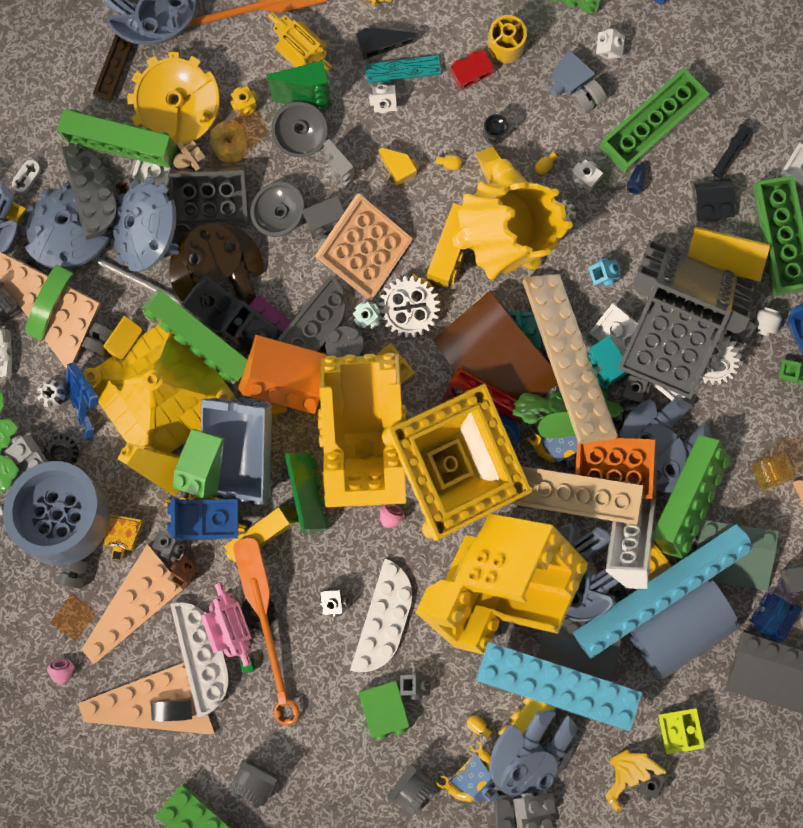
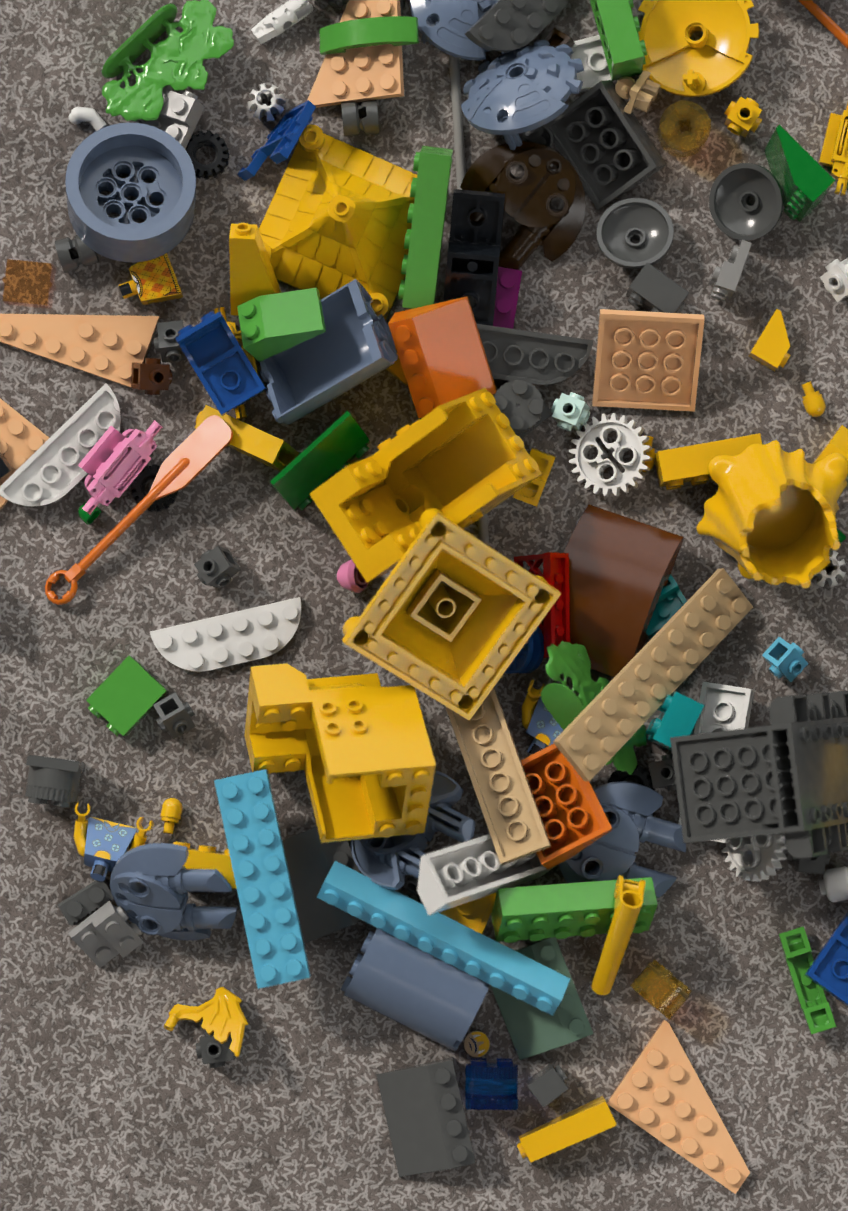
camera: 60 degrees right, 5 degrees up
(122, 338) = (378, 145): yellow slope -> none
(681, 731) = (298, 1049): neon yellow brick -> none
(711, 458) = (628, 903): none -> yellow axle
(742, 611) = (476, 1043): none -> tile

